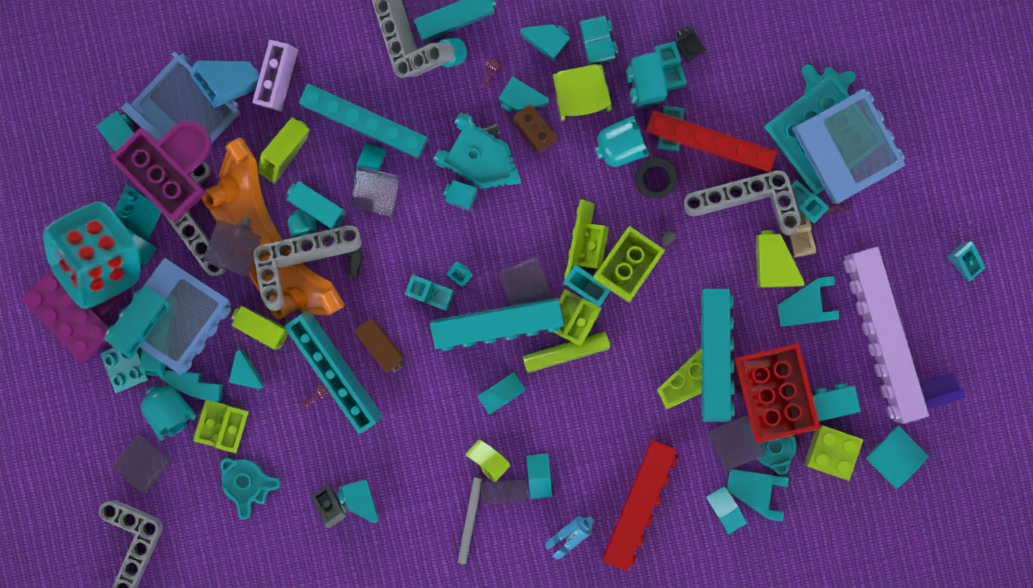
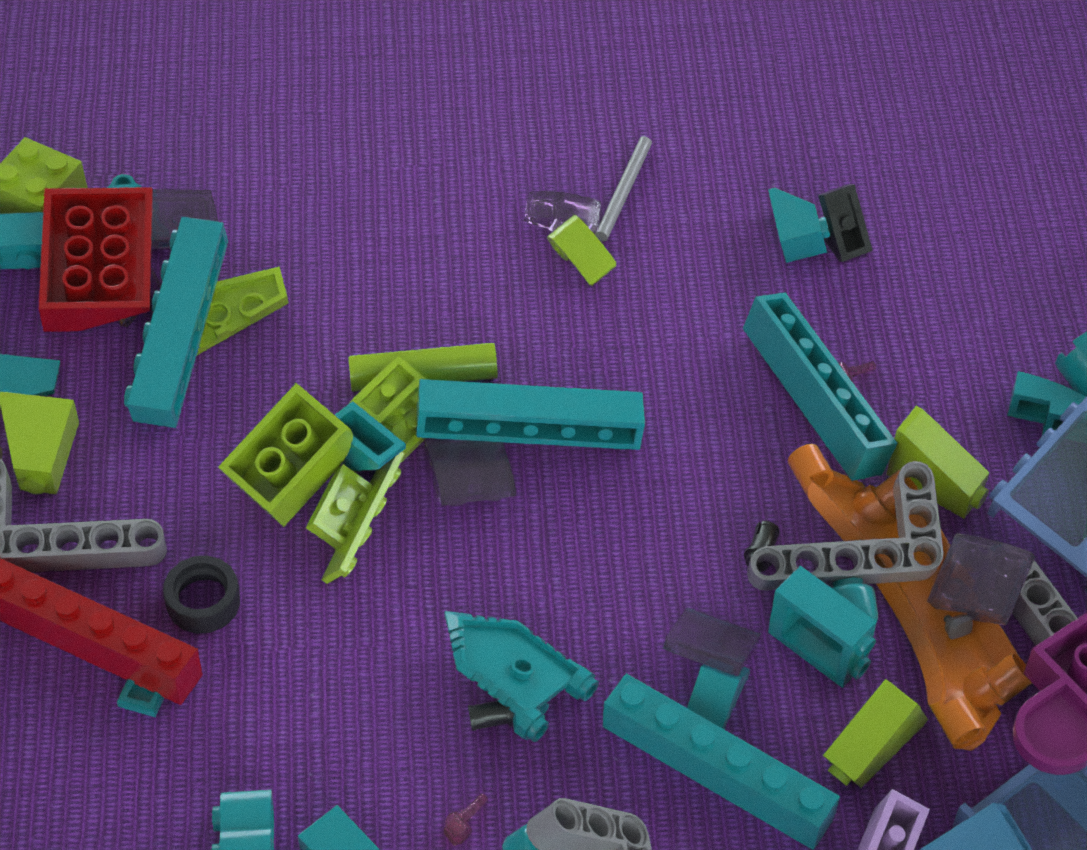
camera: 170 degrees left, 35 degrees down
(220, 426) = (1009, 348): lime slope -> none
(244, 372) = (966, 411): teal slope -> none
(246, 482) = (975, 278): teal tile -> none
(380, 346) = (734, 409): reddish brown window -> none
(429, 292) = (640, 490): teal slope -> none
(460, 195) = (555, 608): teal slope -> none
(460, 273) = (578, 505): teal slope -> none
(501, 393) = (545, 328): teal slope -> none
(519, 95) = (413, 758): teal slope -> none
(536, 133) = (401, 682): reddish brown window -> none
(539, 476) = (503, 228): teal slope -> none
(574, 532) = (471, 137): dark azure piece -> none
(581, 91) = (299, 745): lime piece -> none
(621, 143) = (248, 646): teal cylinder -> none
(639, 505) = (354, 167): red brick -> none
(647, 81) = (172, 727): teal brick -> none
(667, 238) = (208, 506): dark grey rock -> none
(671, 66) = (121, 774): teal slope -> none
(689, 44) = (73, 807): black bracket -> none
(726, 510) = (226, 150): teal slope -> none
(756, 490) = (170, 162): teal flag -> none

